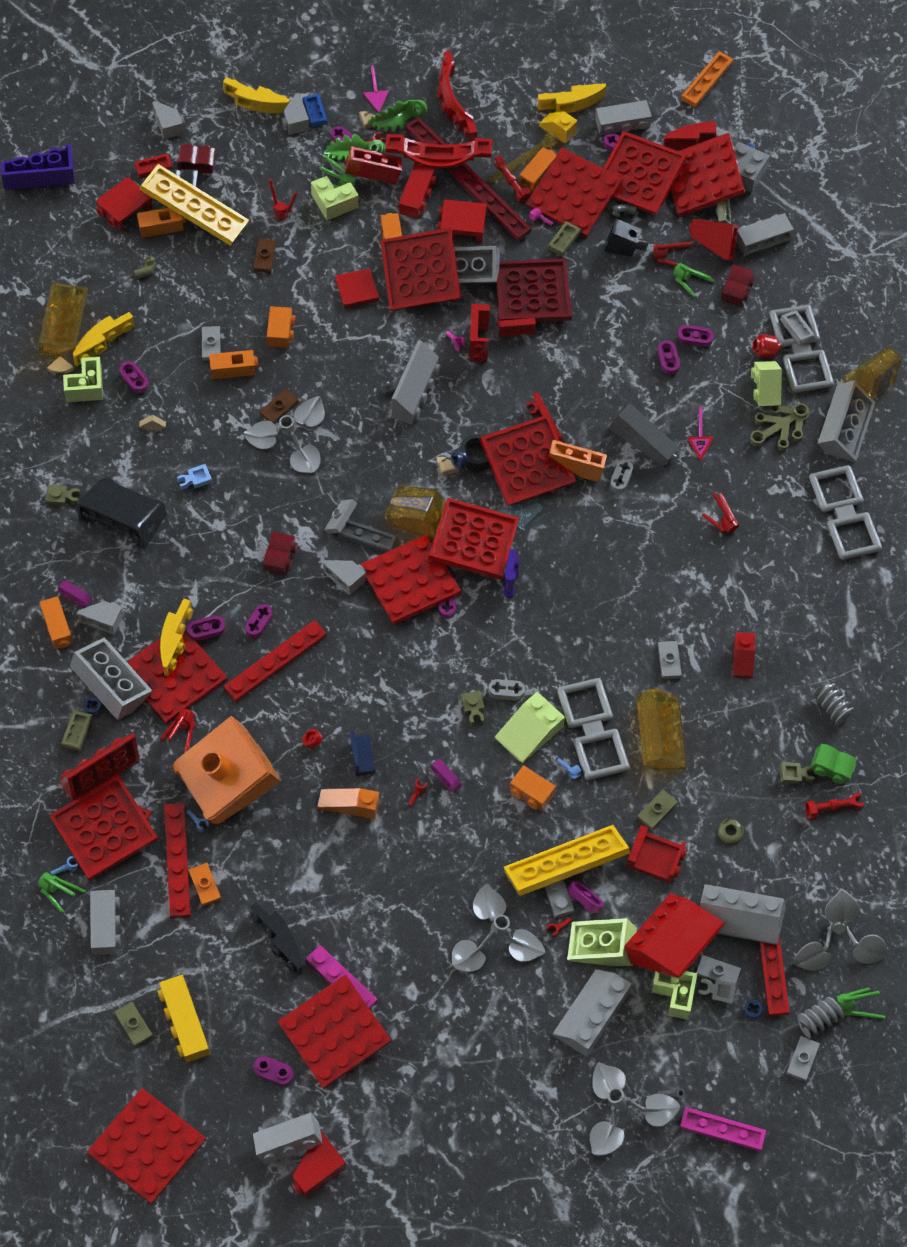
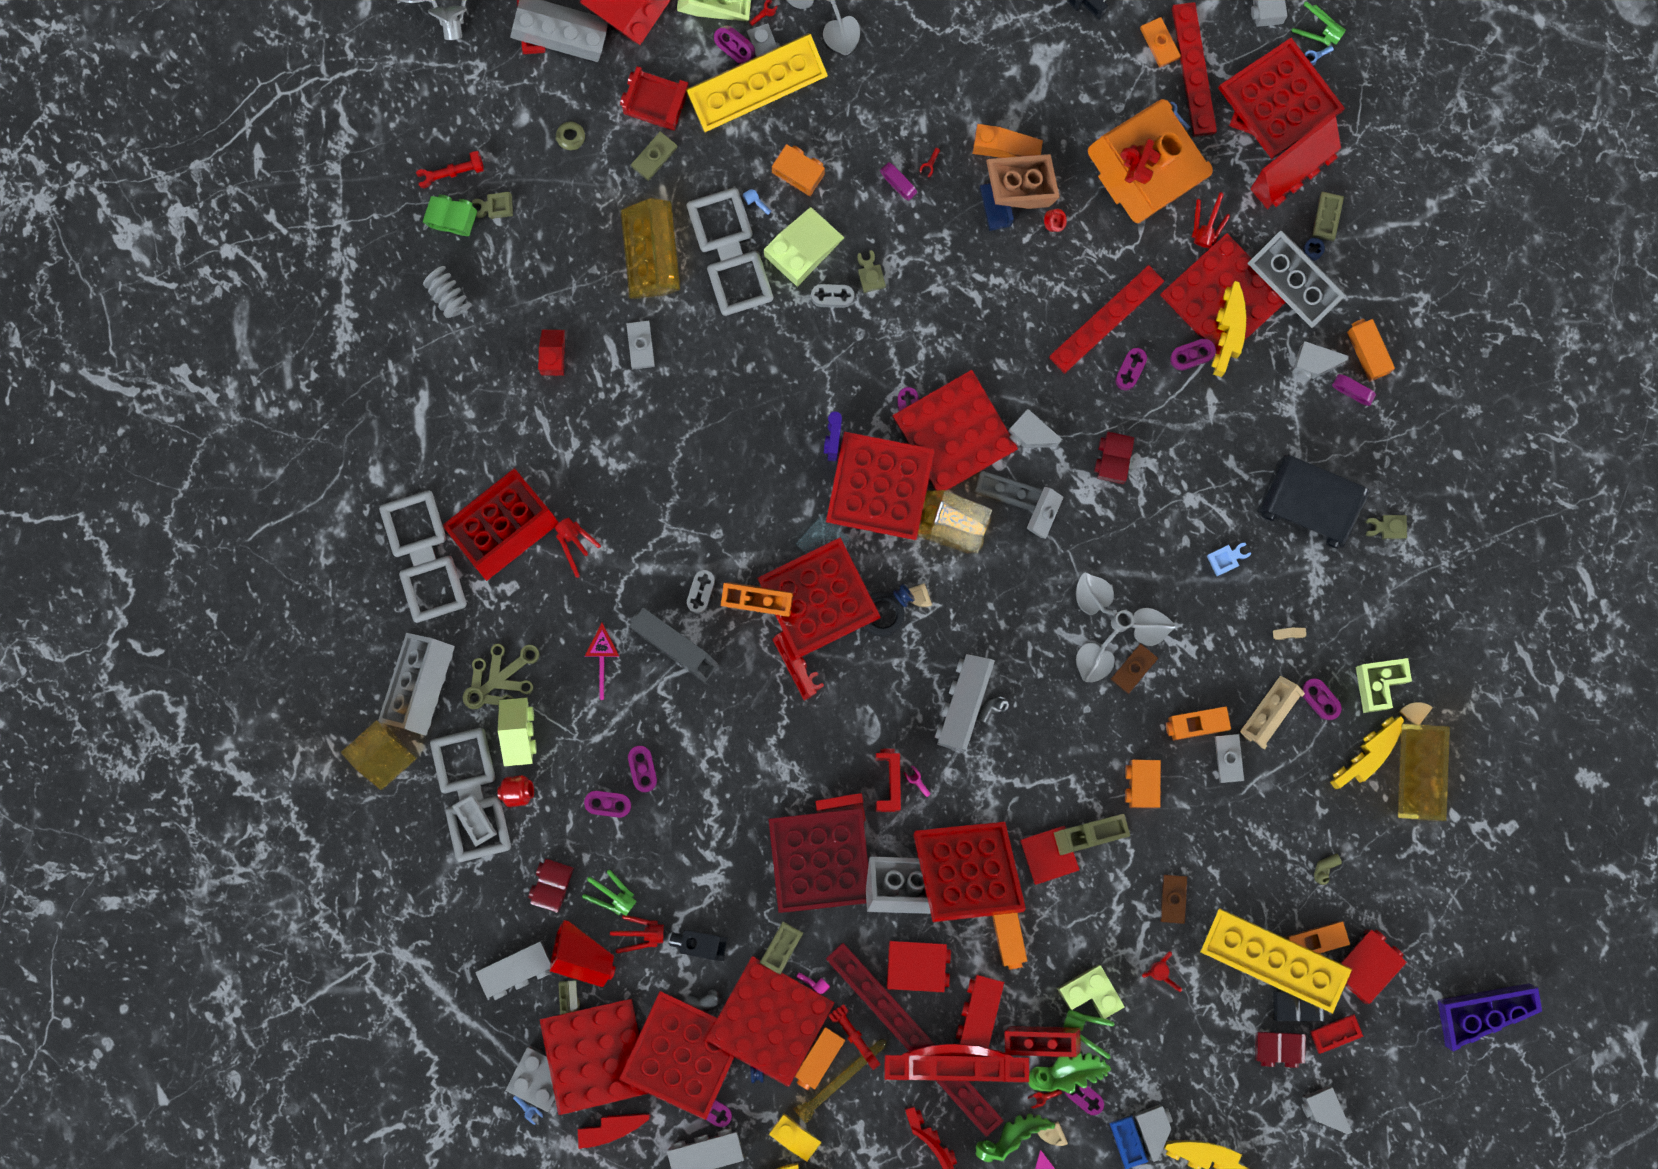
camera: 175 degrees right, 20 degrees up
(175, 368) = (1271, 711): none -> tan container
(241, 749) = (1136, 158): none -> red hips
(323, 296) = (1091, 834): none -> olive slope
(339, 759) = (1023, 181): none -> nougat slope
(784, 530) = (500, 524): none -> red slope

